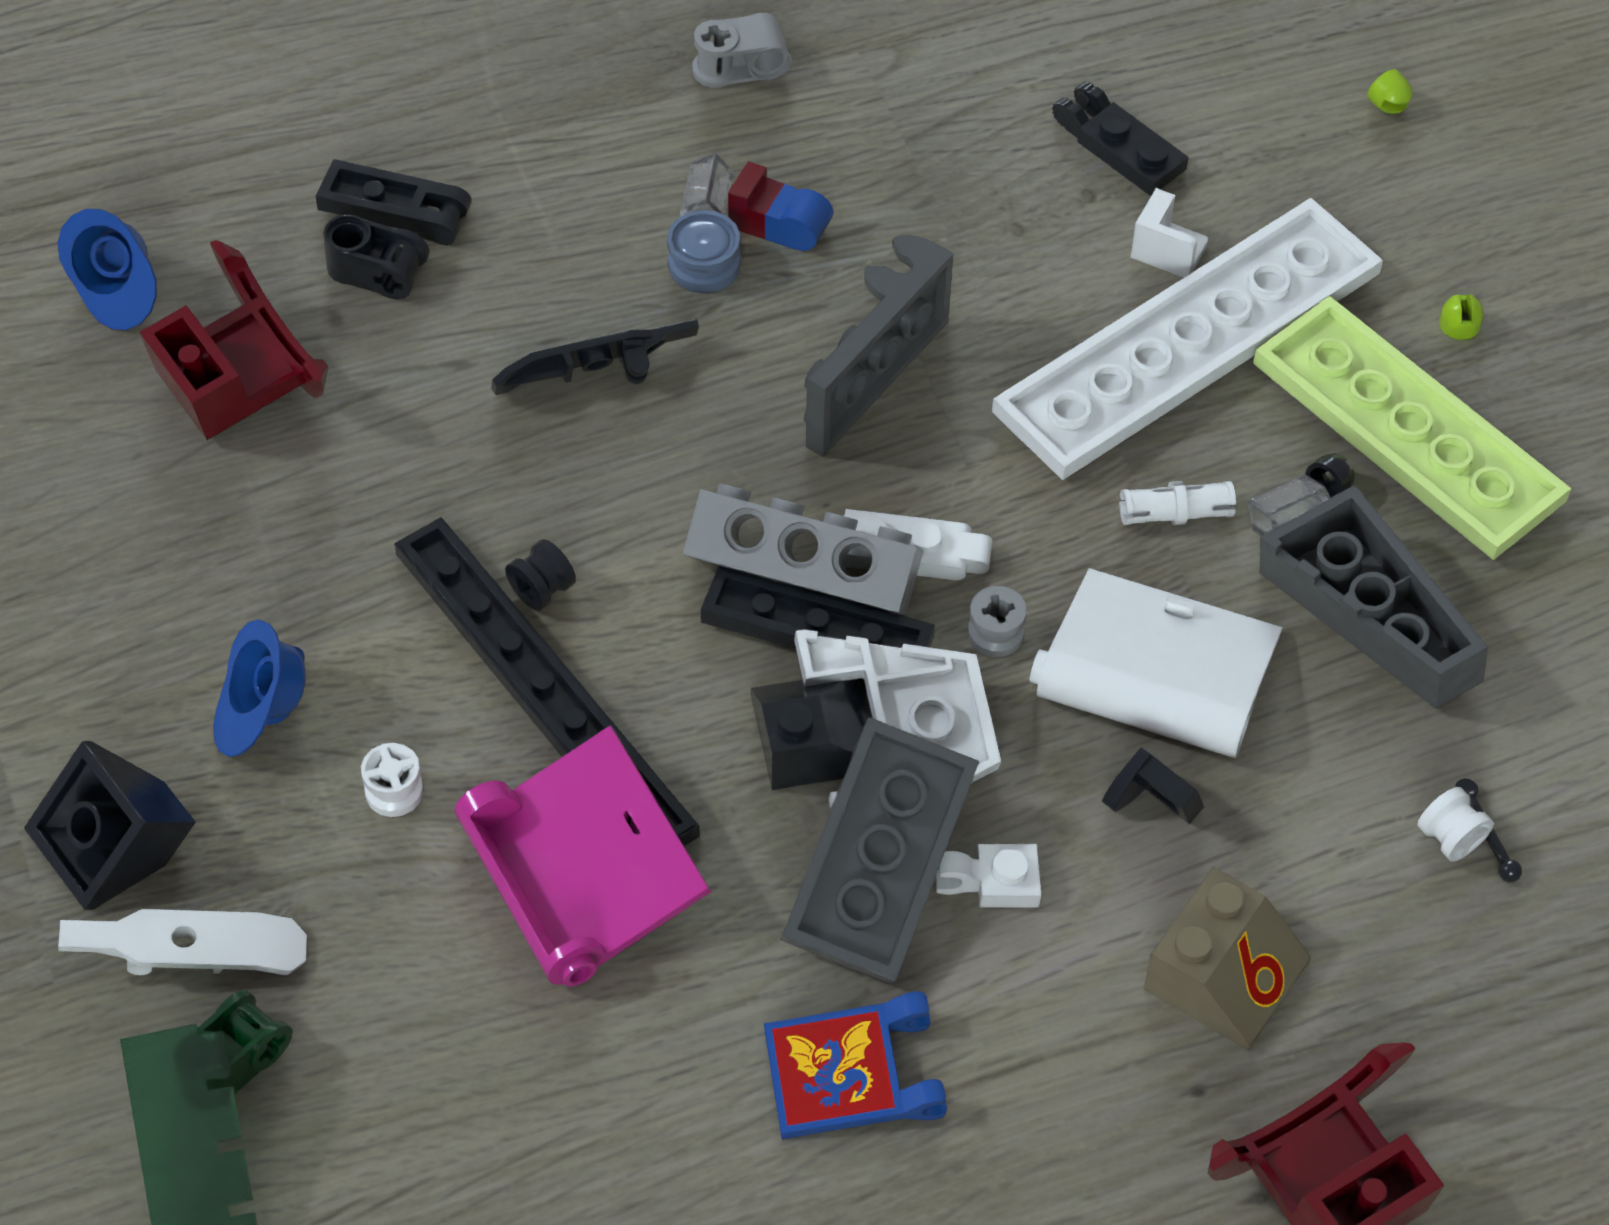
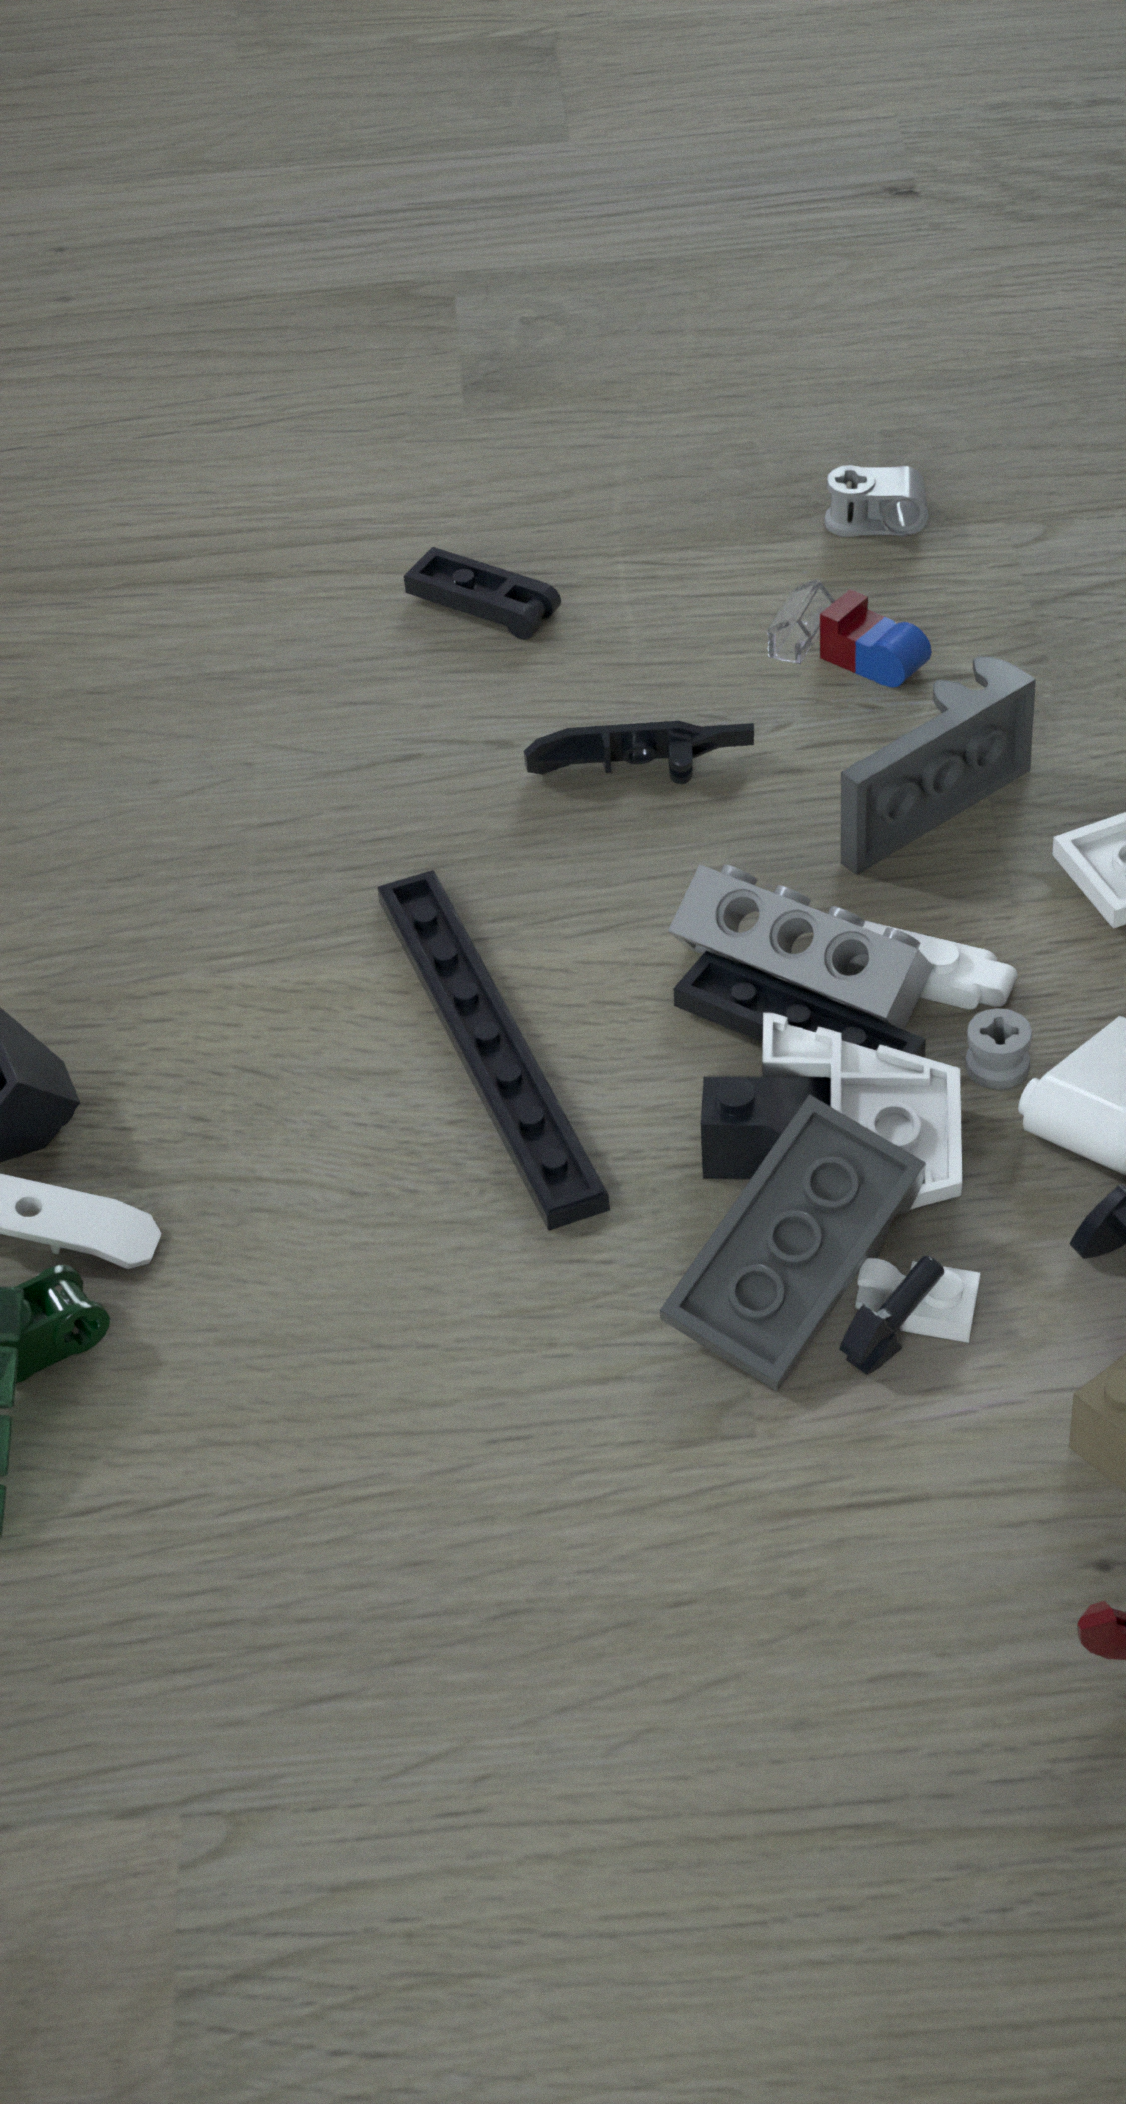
camera: 20 degrees right, 10 degrees down
(108, 267) = (179, 609): blue piece -> none
(235, 361) = (273, 707): dark red piece -> none
(260, 687) = (197, 993): blue piece -> none
(370, 255) = (439, 632): black piece -> none
(401, 768) = (297, 1099): white wheel -> none
(540, 574) = (516, 933): black wheel -> none
(573, 862) = (460, 1206): dark pink door -> none
(704, 251) = (783, 670): sand blue wheel -> none
(842, 1069) = (698, 1464): flag -> none
(966, 917) = (871, 1335): none -> black bar

